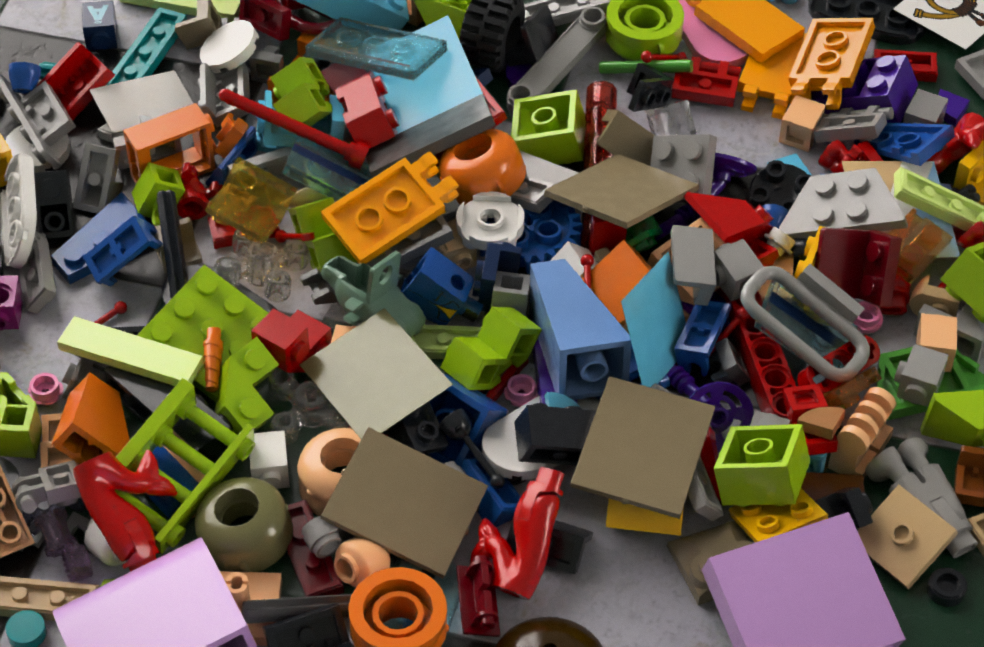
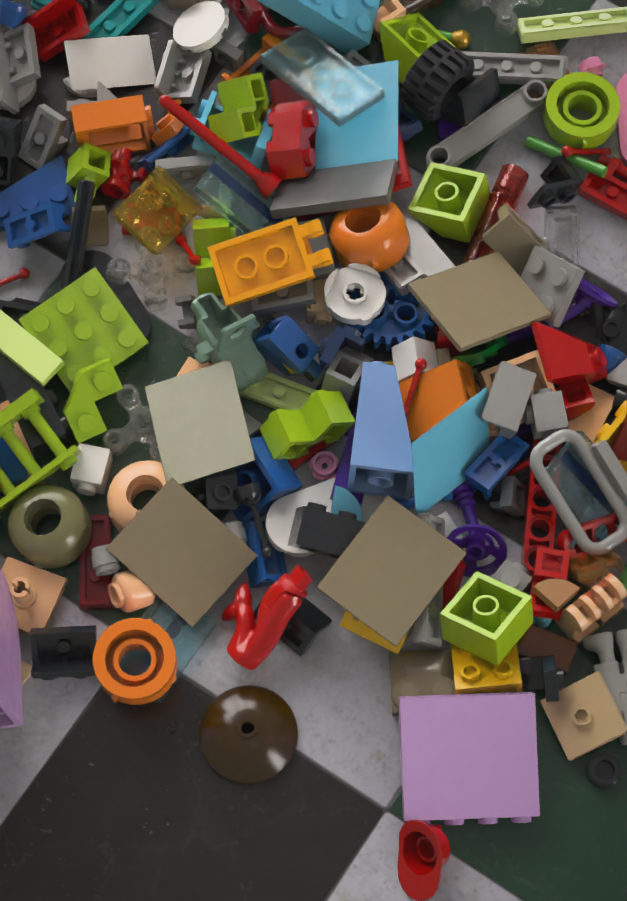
camera: 20 degrees right, 20 degrees up
(213, 358) = (74, 359): orange animal -> none
(283, 608) = (63, 616): dark grey axle -> none
(292, 338) = (146, 362): red brick -> none
(478, 598) = (212, 656): dark red hinge -> none
(780, 241) = (603, 389): plate -> none

